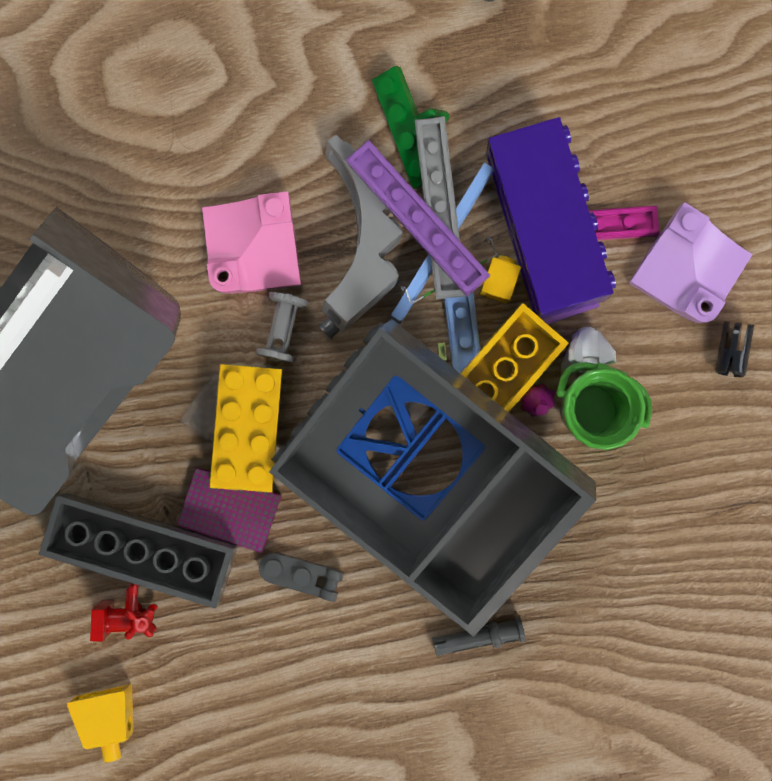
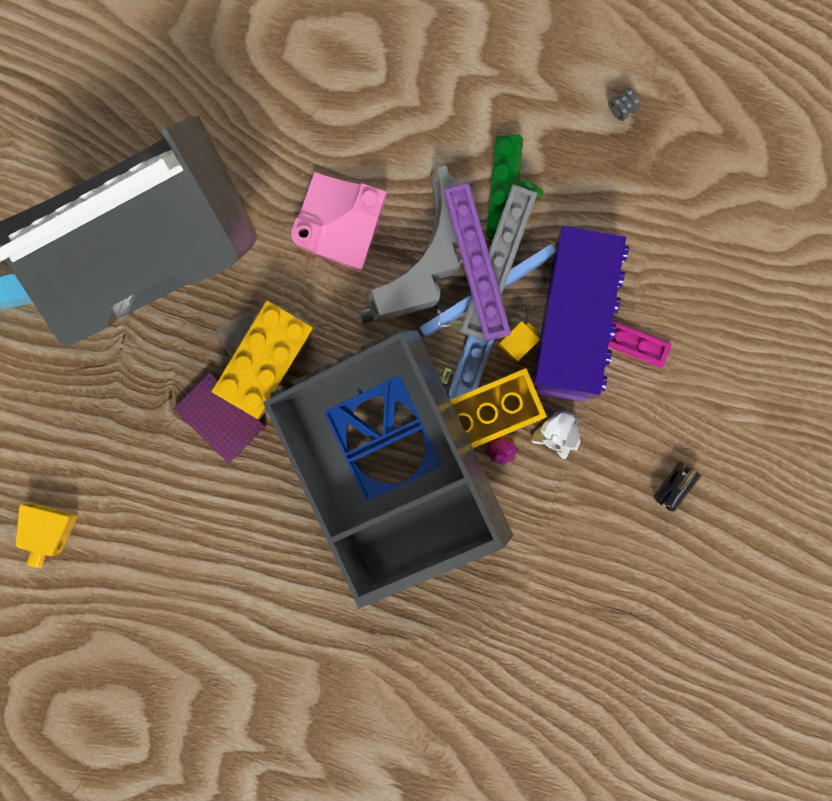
camera: 30 degrees right, 0 degrees up
(128, 619) = (100, 464): red piece -> none
(138, 549) = (134, 413): dark grey brick -> none
(282, 326) = (330, 294): light grey hose -> none
(300, 575) = (249, 495): dark grey plate -> none
(494, 634) = (377, 616): dark grey pin -> none
(603, 405) = (549, 479): bright green piece -> none
(690, 266) = (674, 405): lavender slope -> none

